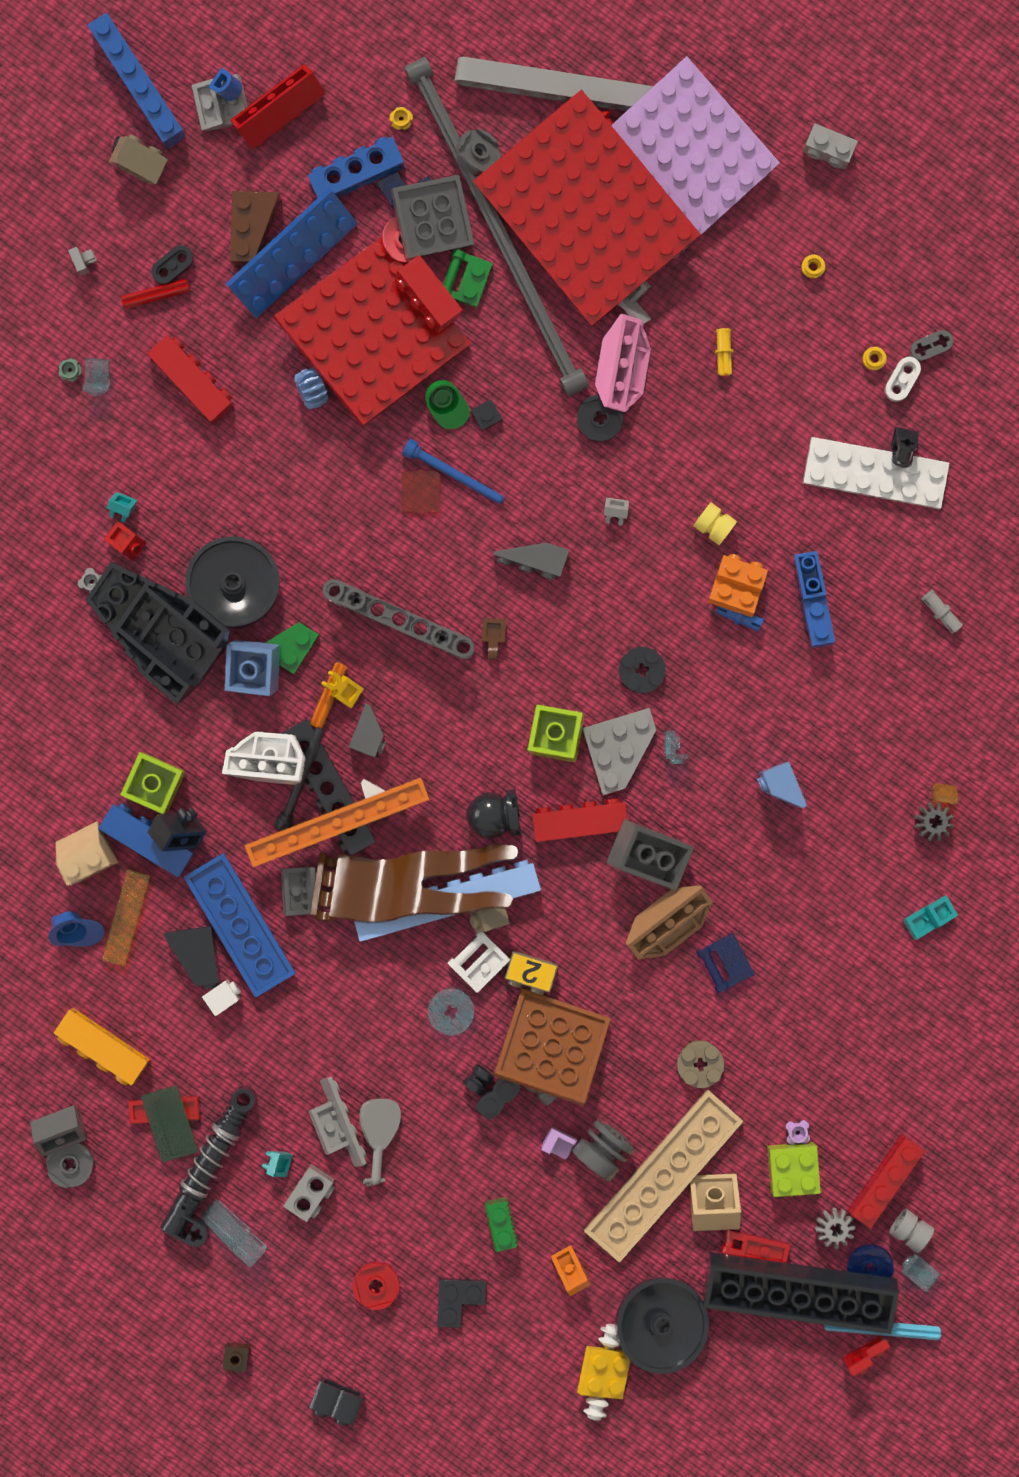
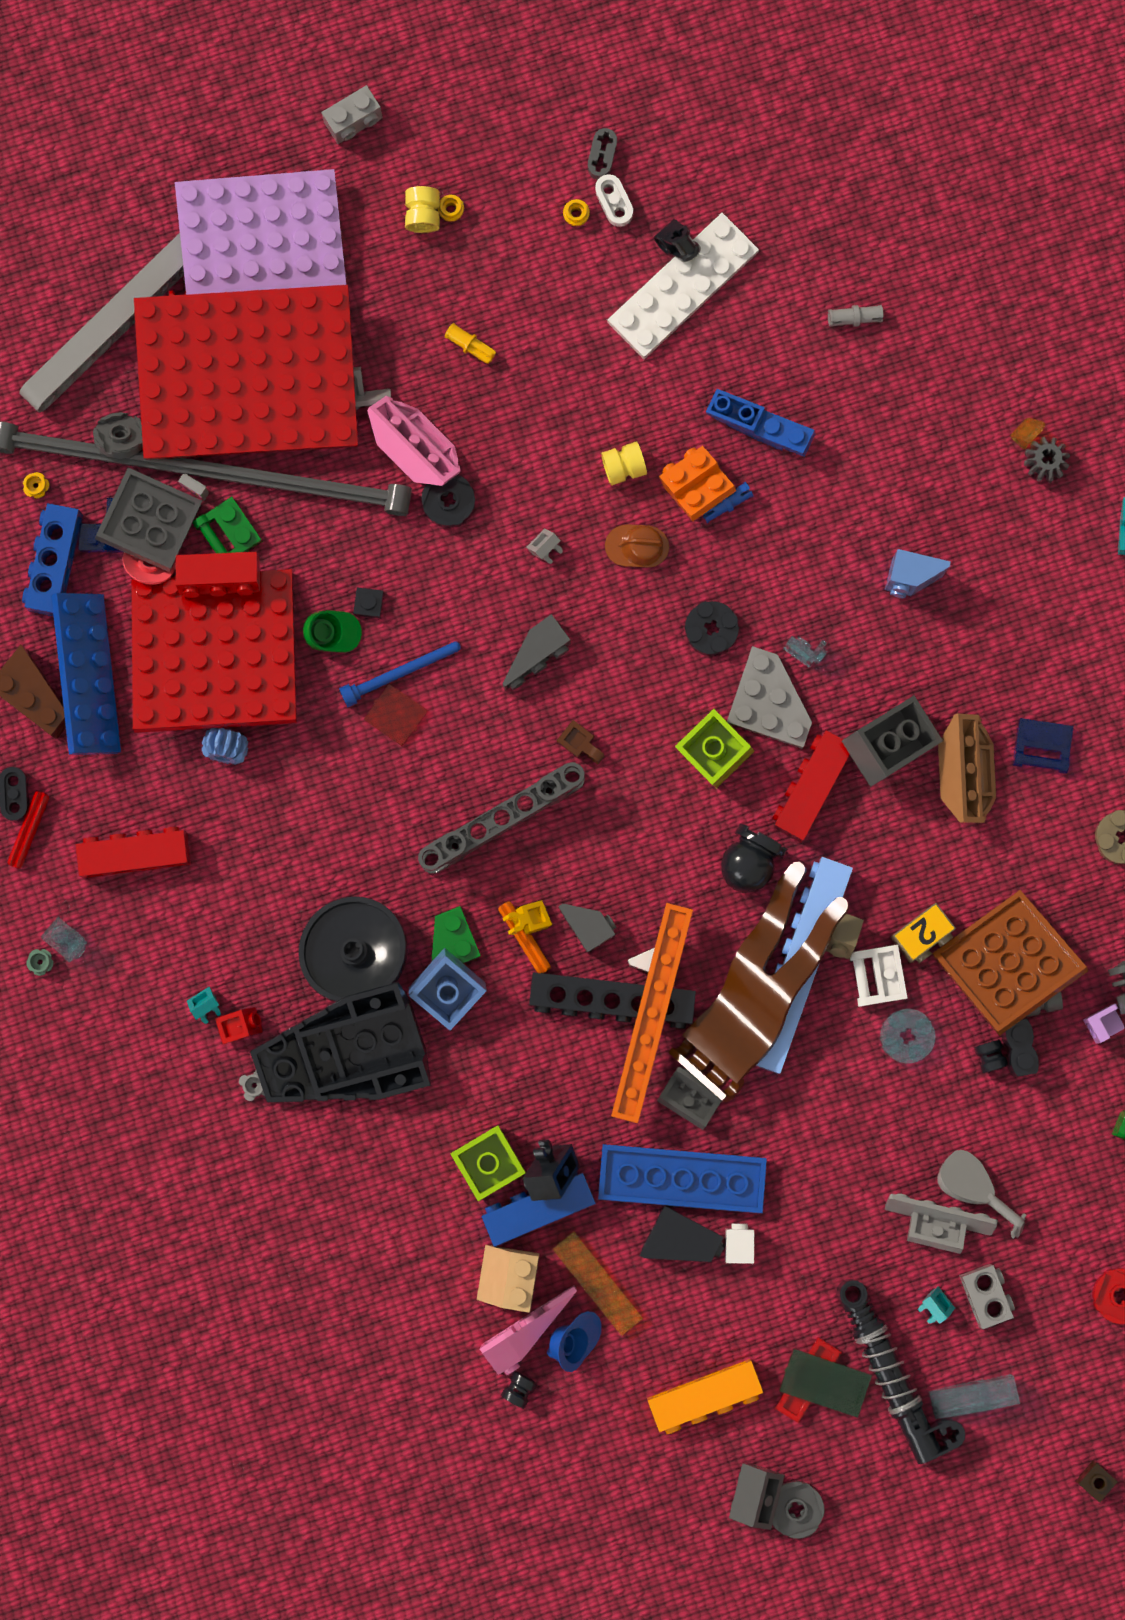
camera: 55 degrees left, 5 degrees down
(14, 915) = (523, 1385): none -> black wheel
(43, 889) = (514, 1342): none -> bright pink wedge
(266, 759) = (544, 1037): white wedge -> none
(285, 819) = (613, 1062): black piece -> none
(479, 231) = (193, 486): none -> light grey tile
(663, 575) = (636, 546): none -> dark orange piece
(800, 244) = (422, 213): none -> light yellow wheel

